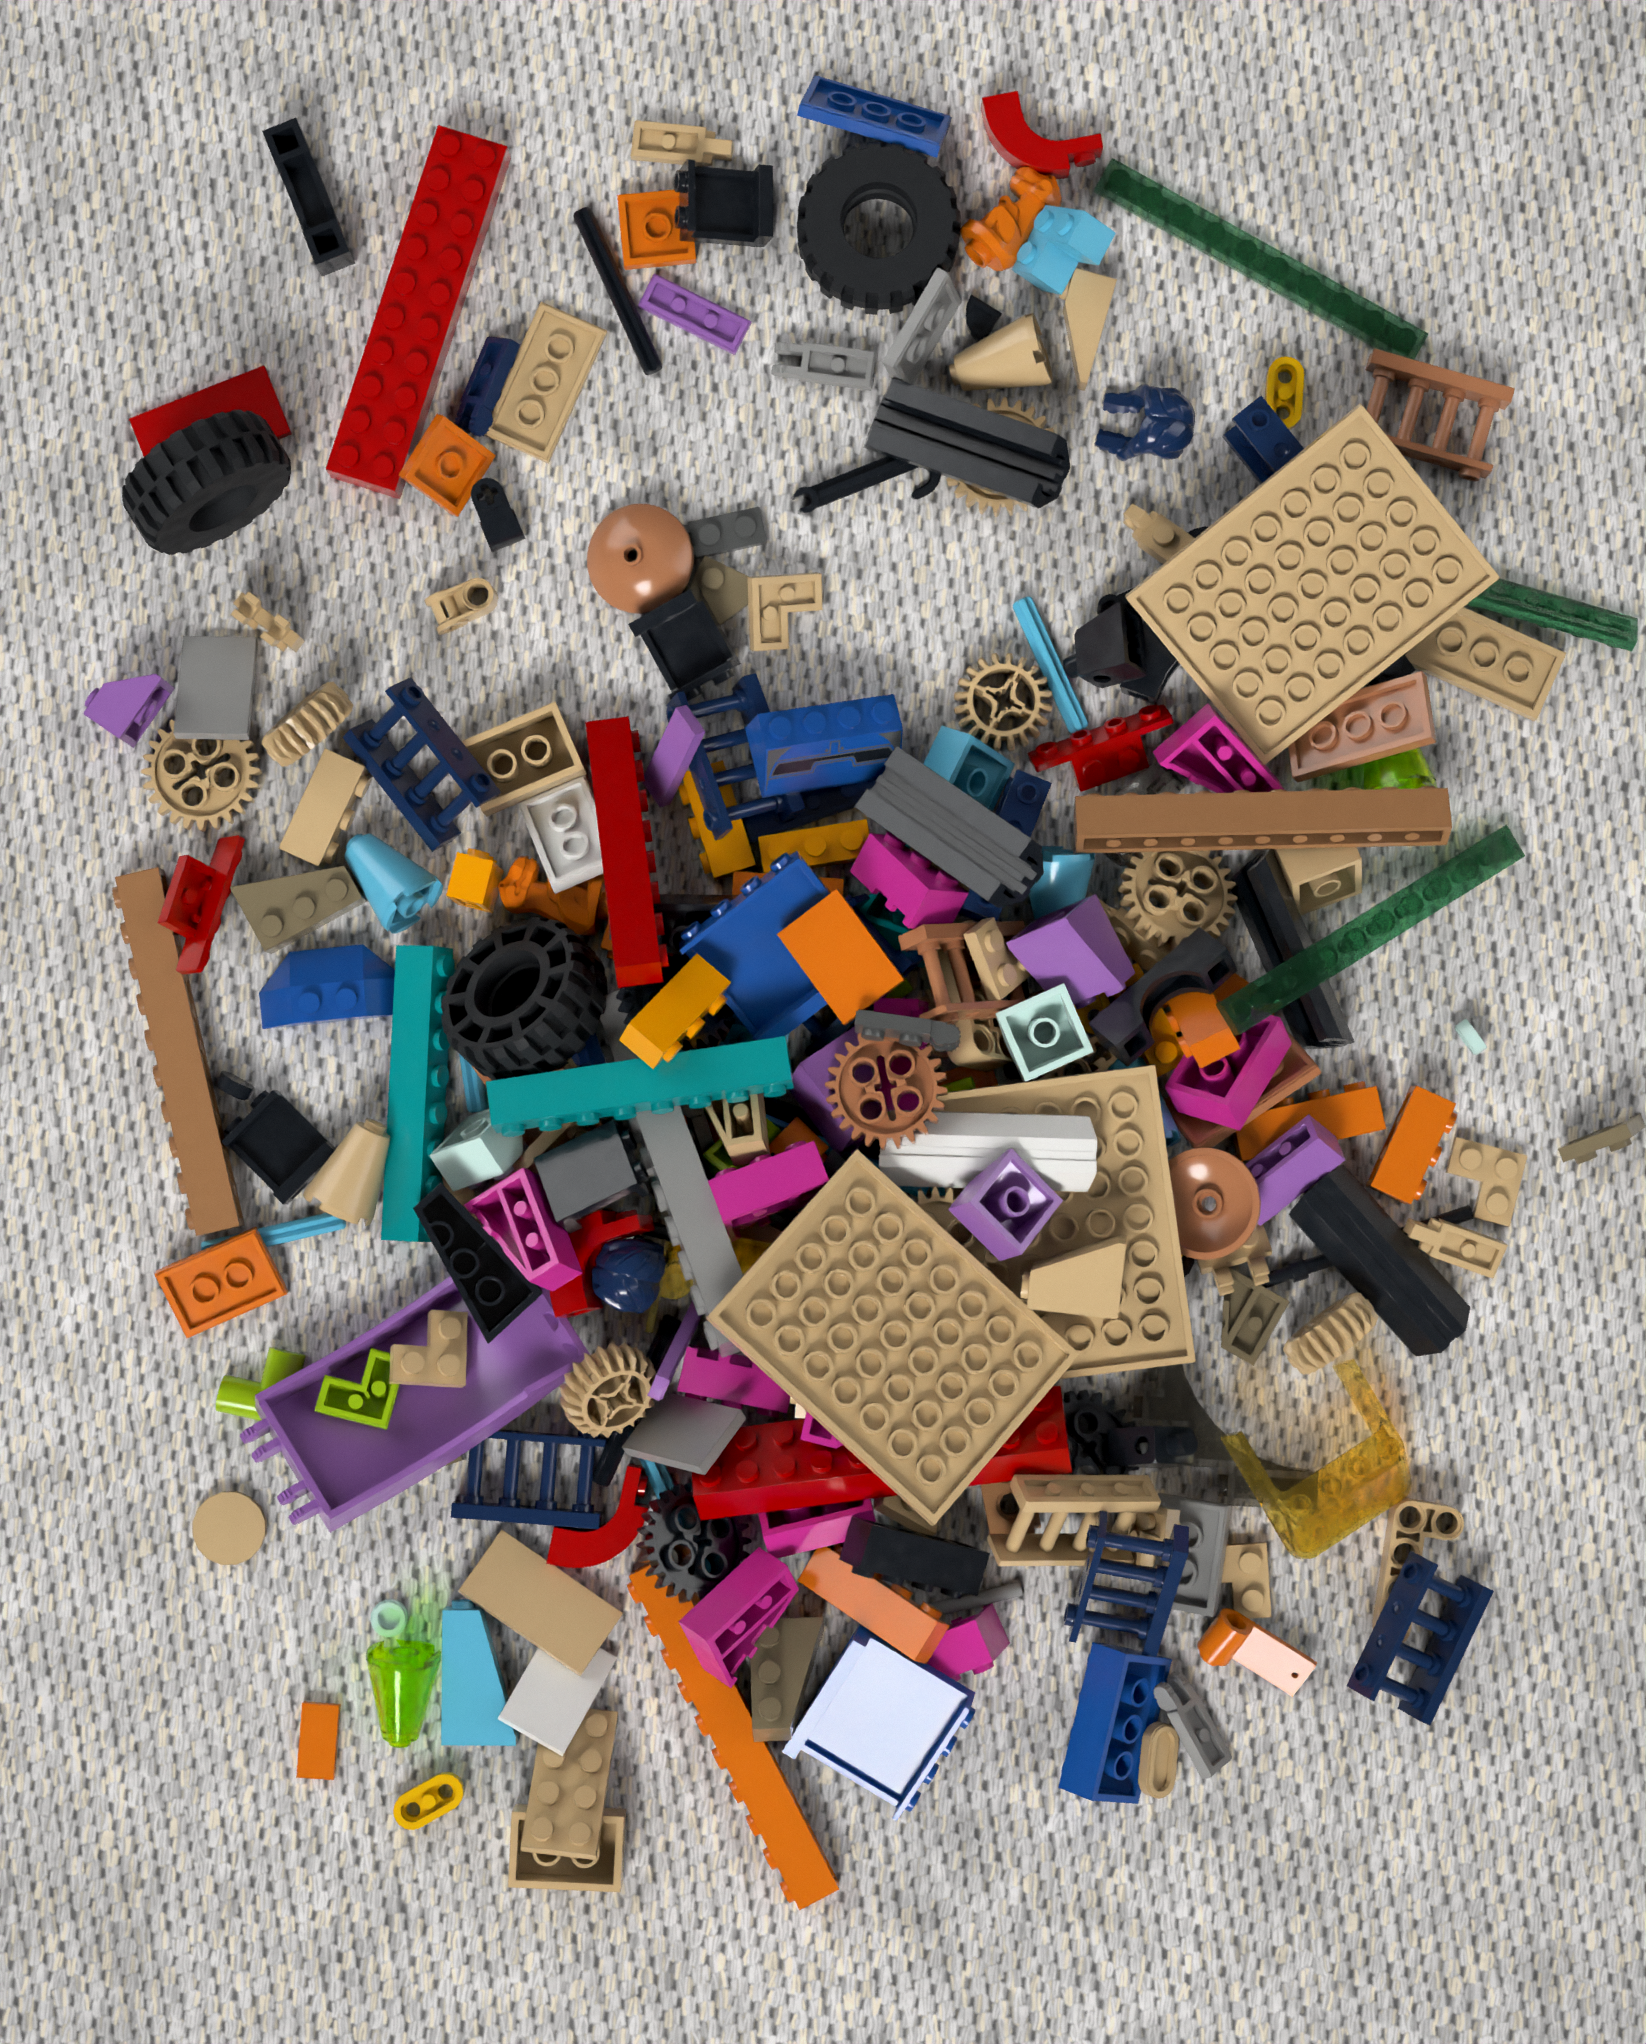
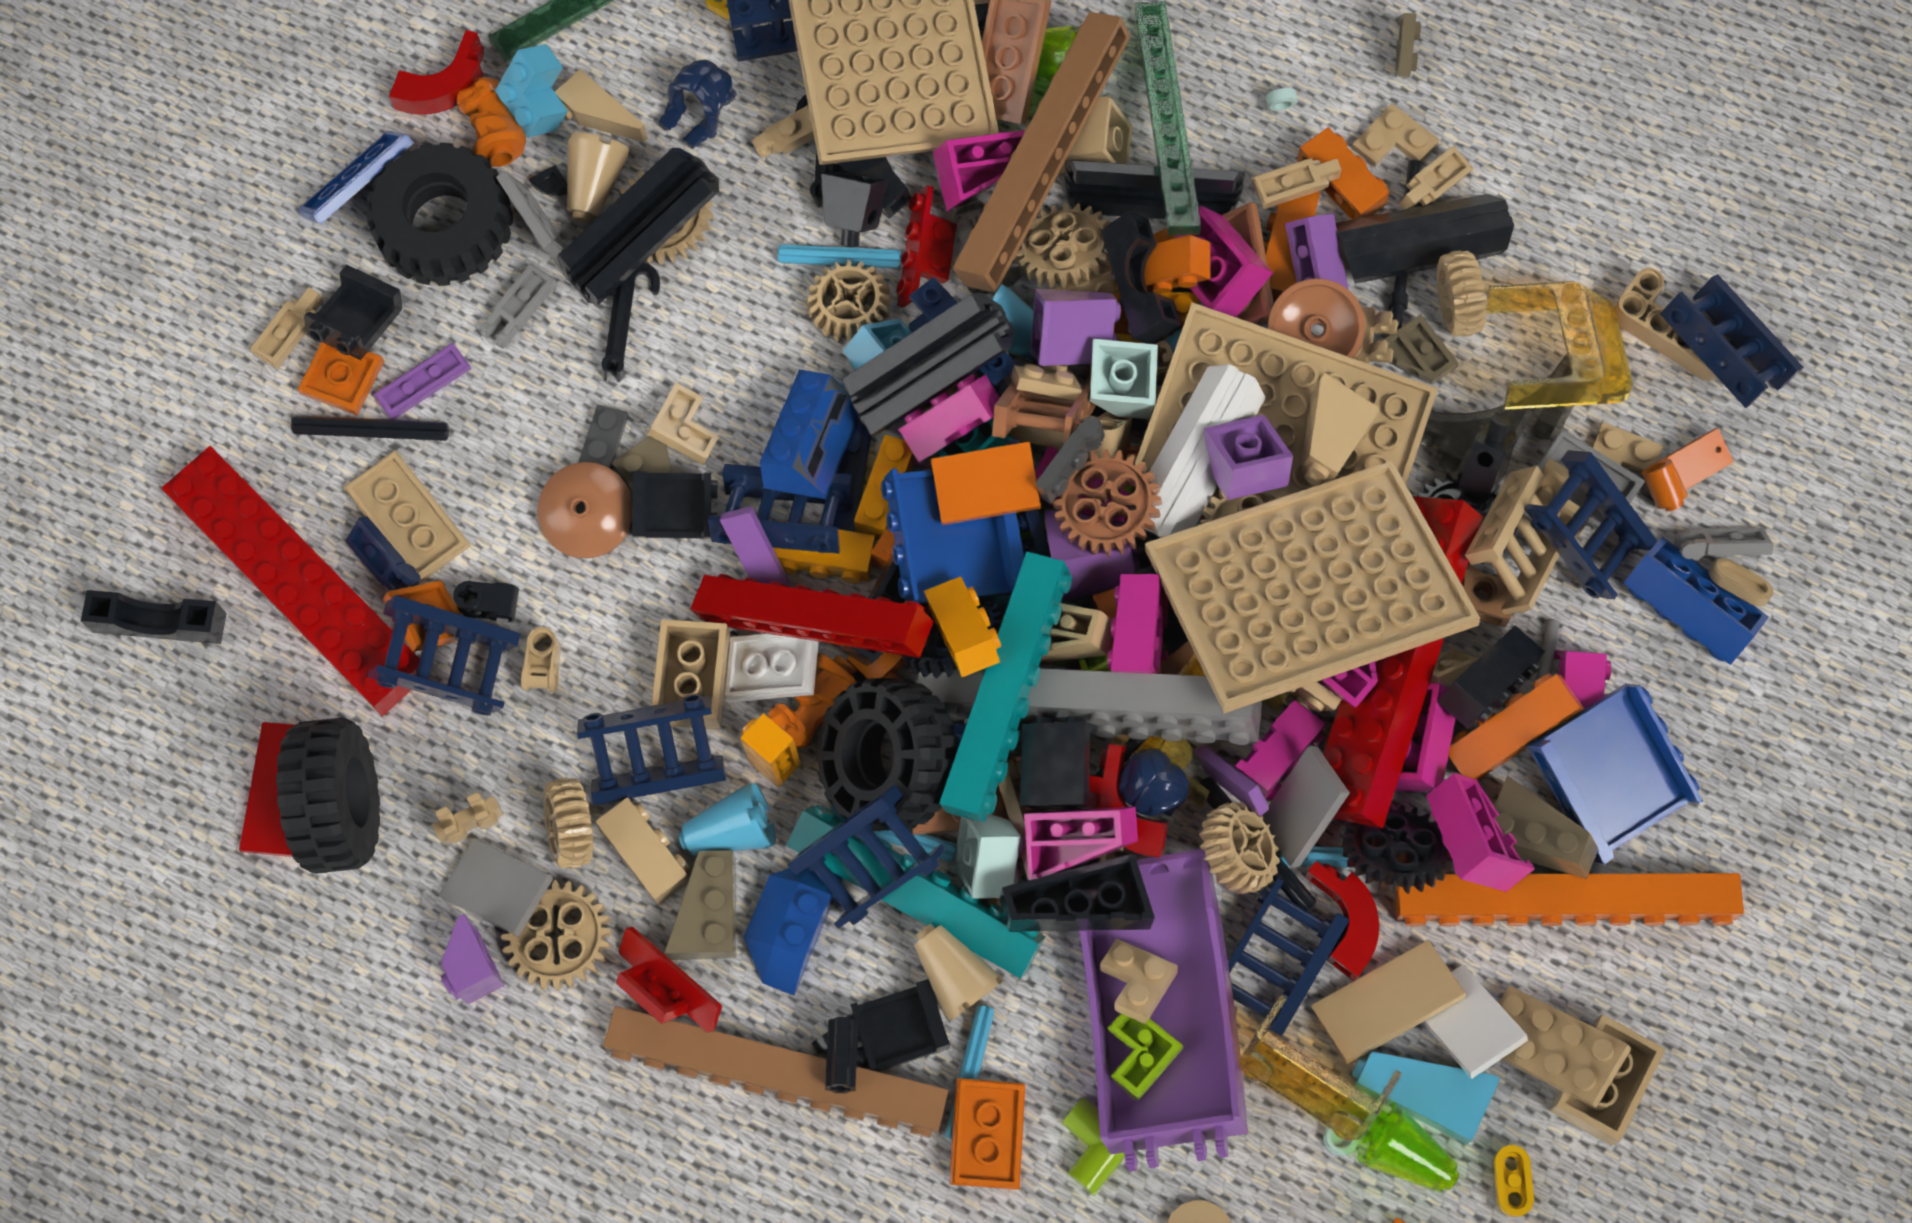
camera: 60 degrees left, 15 degrees down
(216, 1109) = (841, 1055): none -> black axle
(414, 1570) = (1310, 1084): none -> clear yellow windscreen
(432, 1014) = (860, 826): none -> dark blue fence
(433, 482) = (467, 632): none -> dark blue fence
(1367, 1099) = (1294, 181): none -> tan hinge

